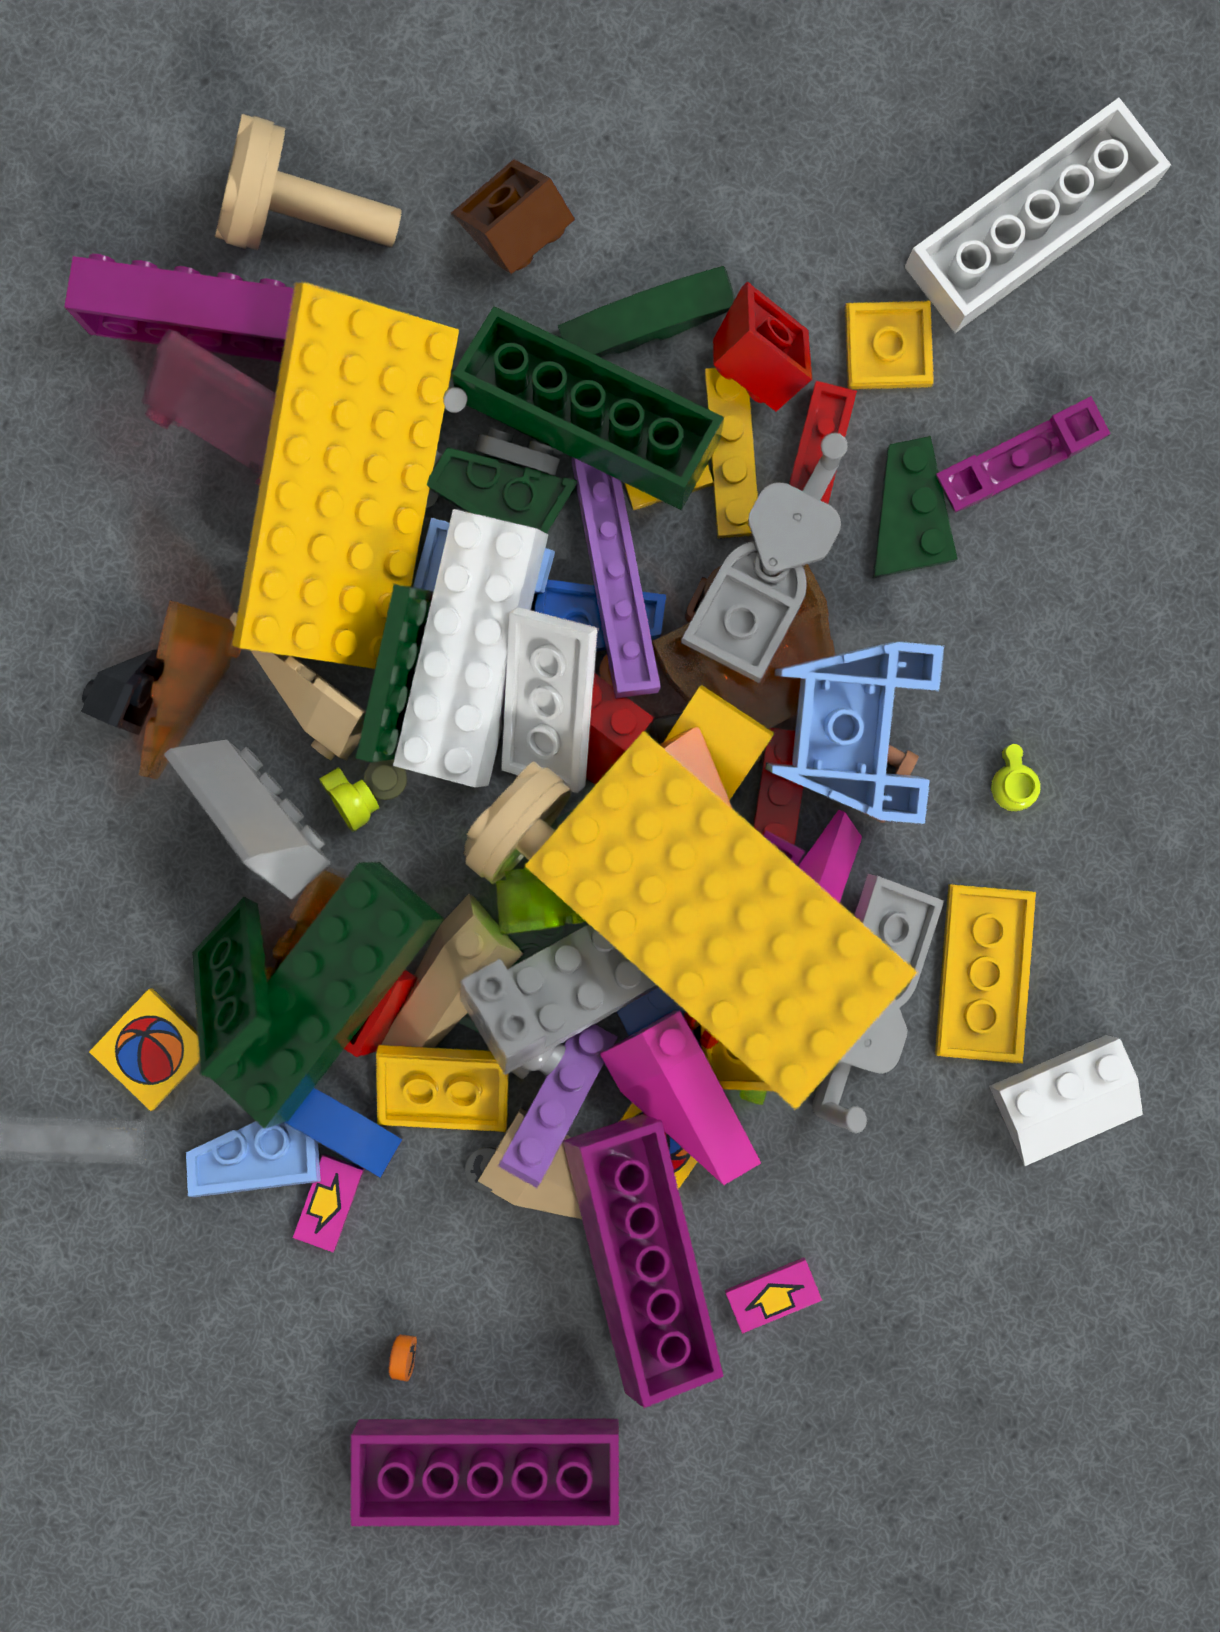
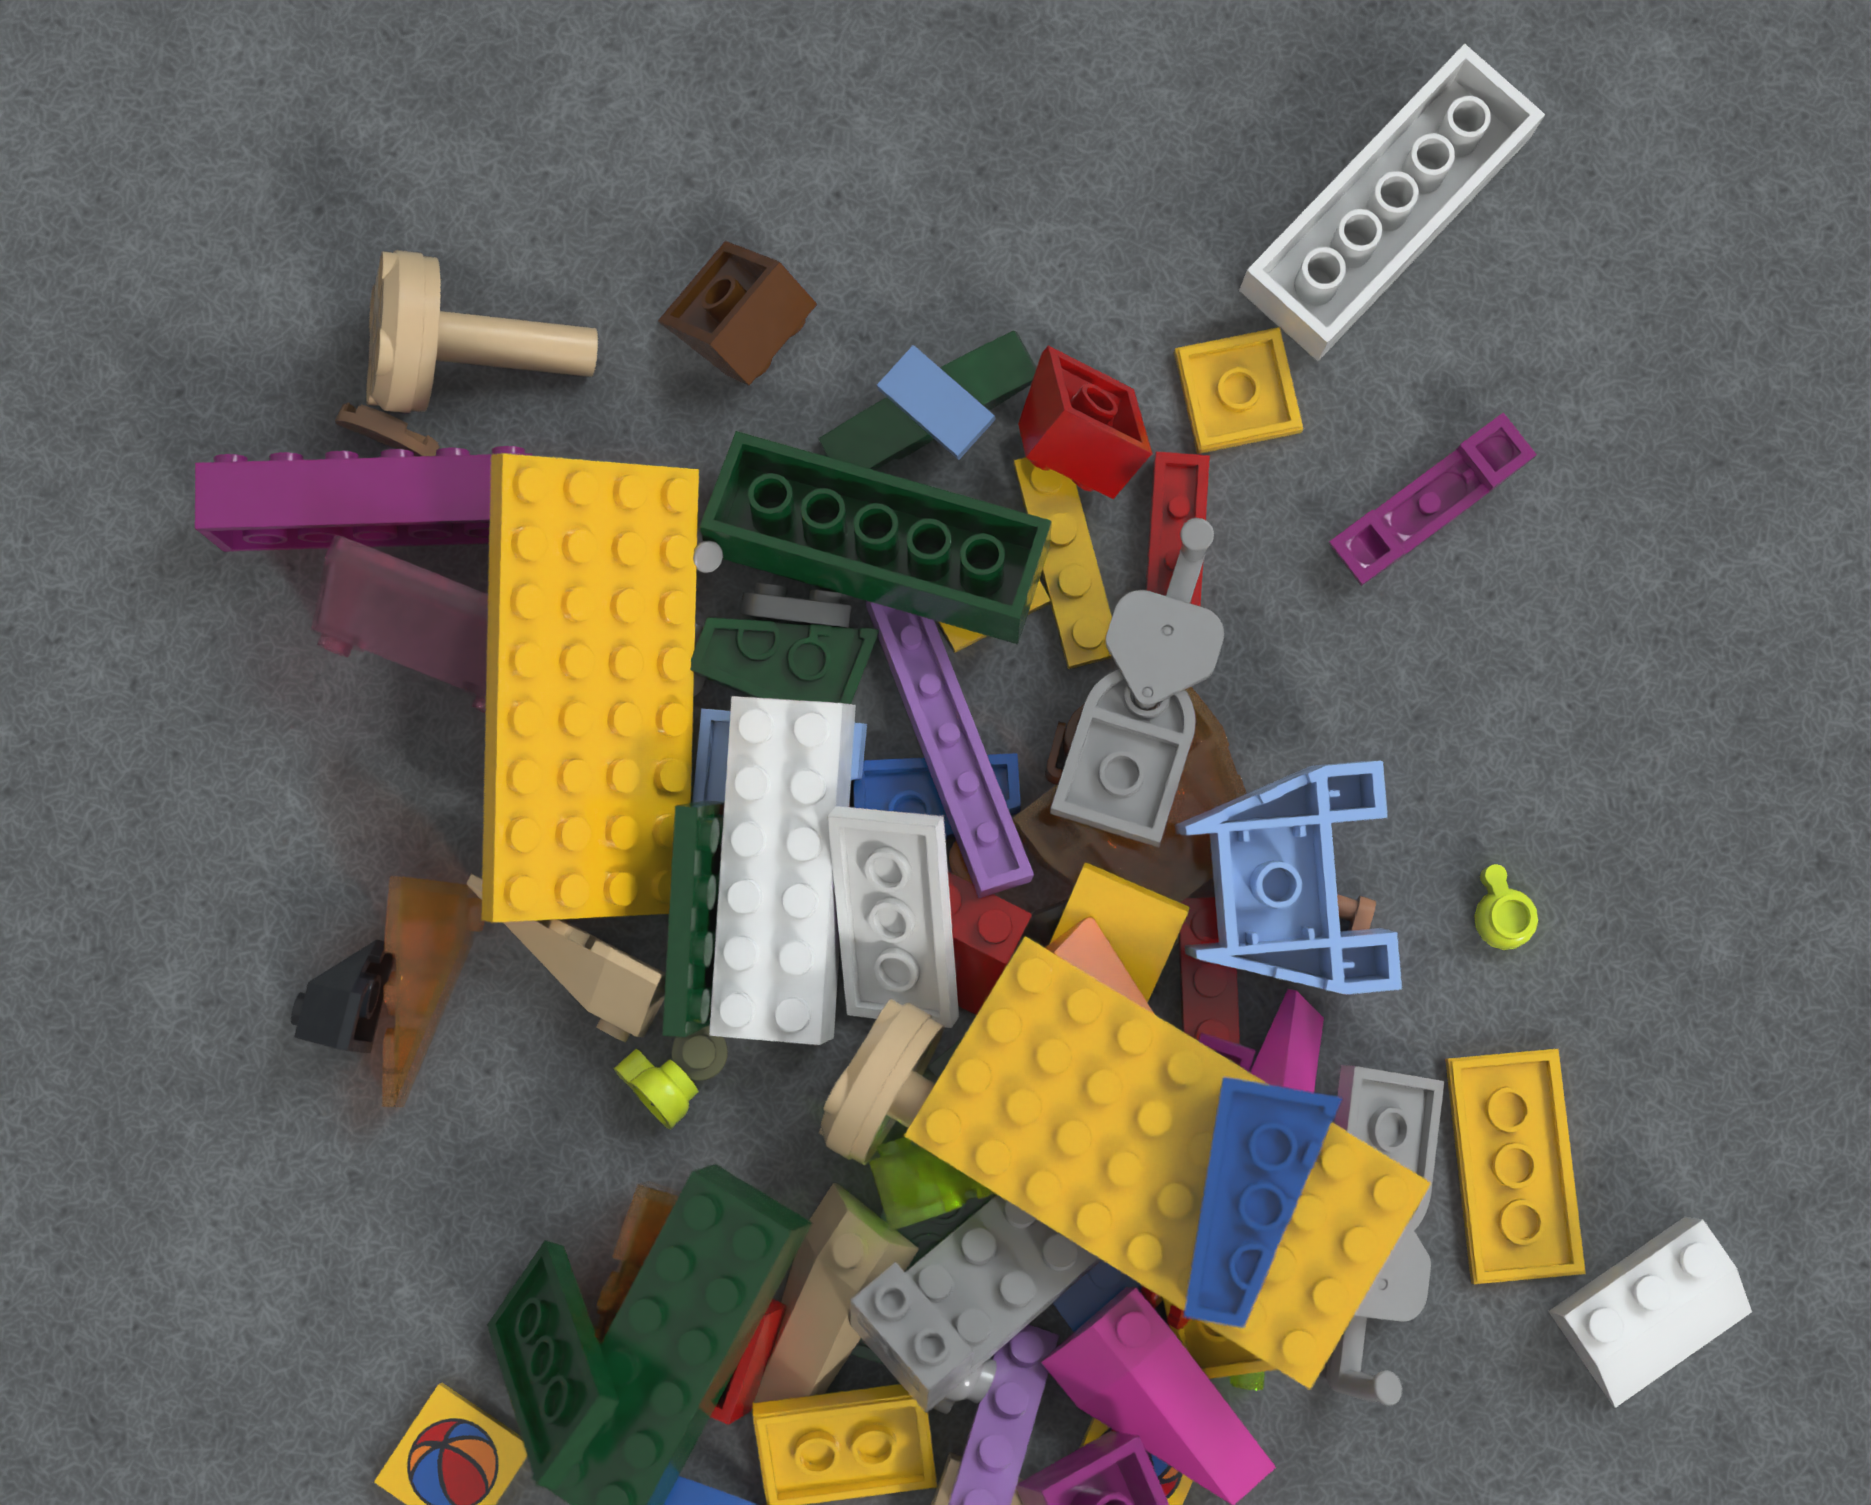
camera: 15 degrees left, 5 degrees down
(224, 258) = (385, 429): none -> medium nougat tile
(251, 813) = (540, 1131): light grey slope -> none
(652, 310) = (936, 402): none -> medium blue tile
(783, 944) = (1254, 1177): none -> blue wing
(913, 514) = (1308, 593): dark green wing -> none

